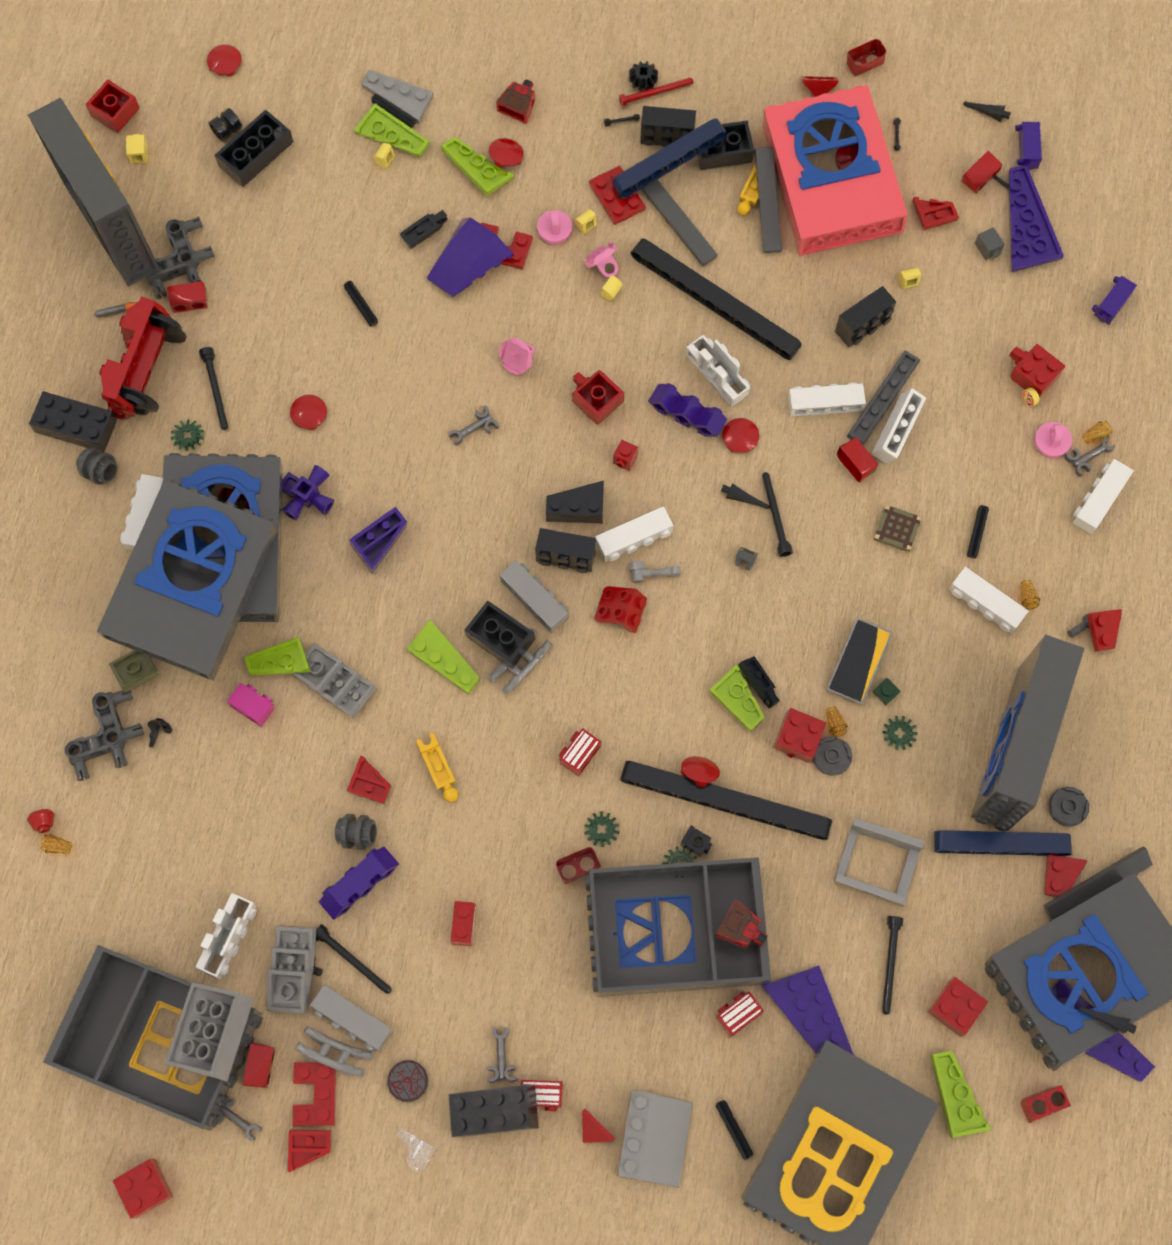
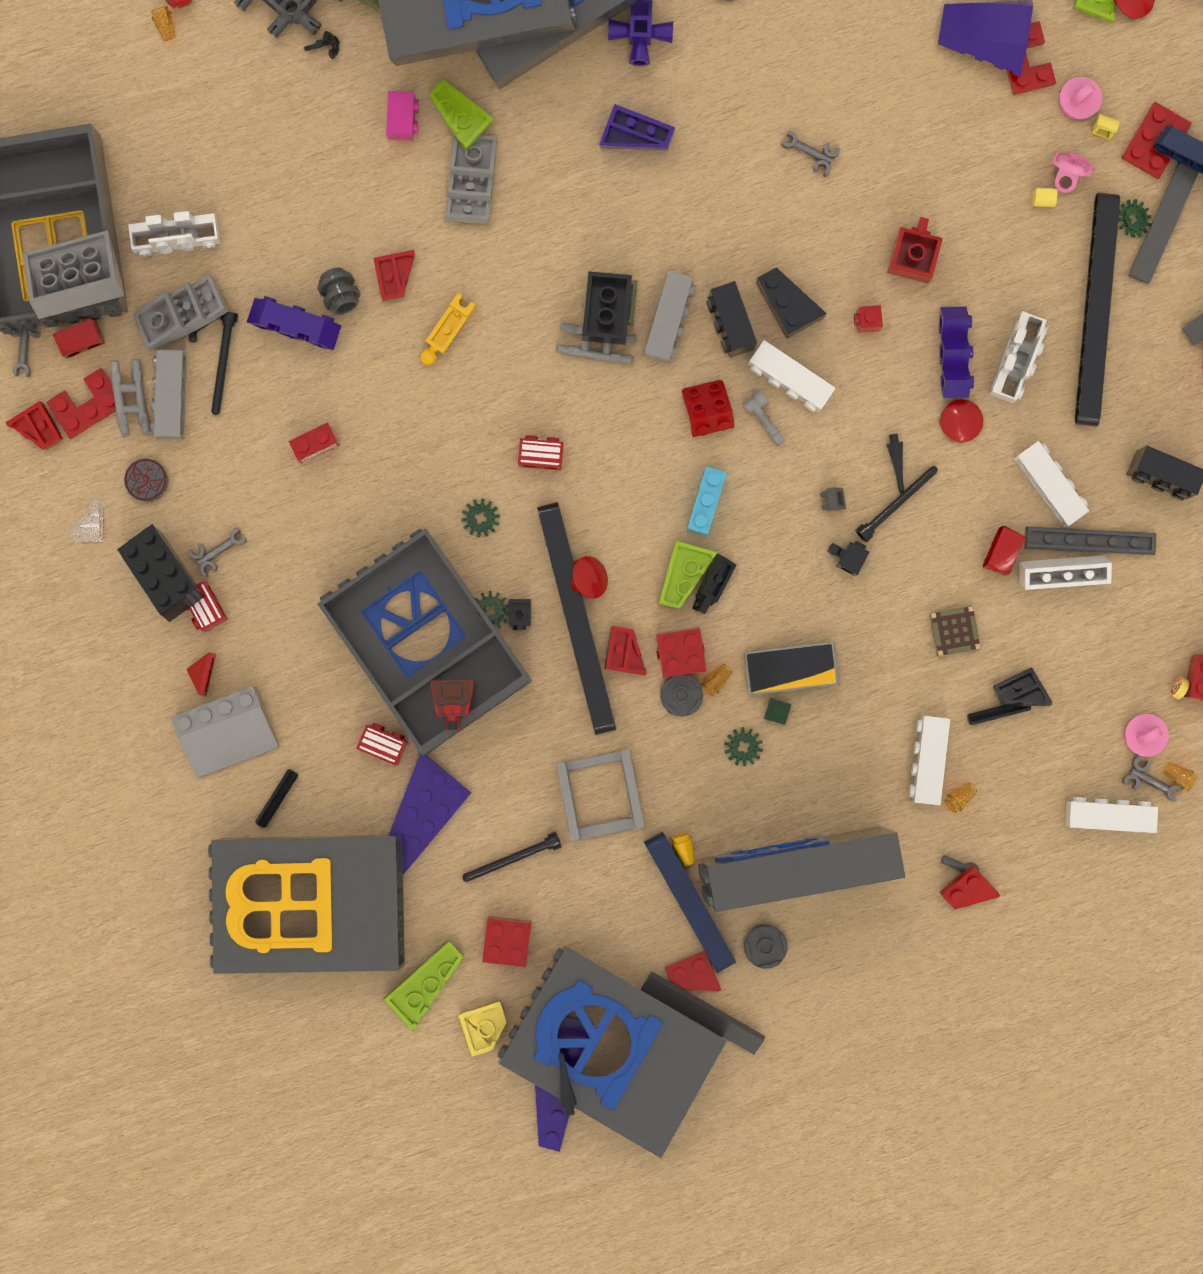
camera: 55 degrees right, 15 degrees up
(440, 655) = (557, 265): lime wing -> none
(516, 356) = (910, 146): bright pink tile -> none
(579, 855) = (421, 499): red piece -> none
(664, 233) = (1141, 215): none -> clear green gear
(692, 649) = (706, 501): none -> medium azure brick
(773, 779) = (623, 652): none -> red wing
(798, 569) = (851, 557): none -> black brick
(955, 822) = (683, 846): none -> yellow cone
(971, 505) = (1022, 691): none -> black wing
(1018, 1068) = (483, 1027): none -> light yellow plate
(1026, 1103) = (461, 1074): red piece -> none

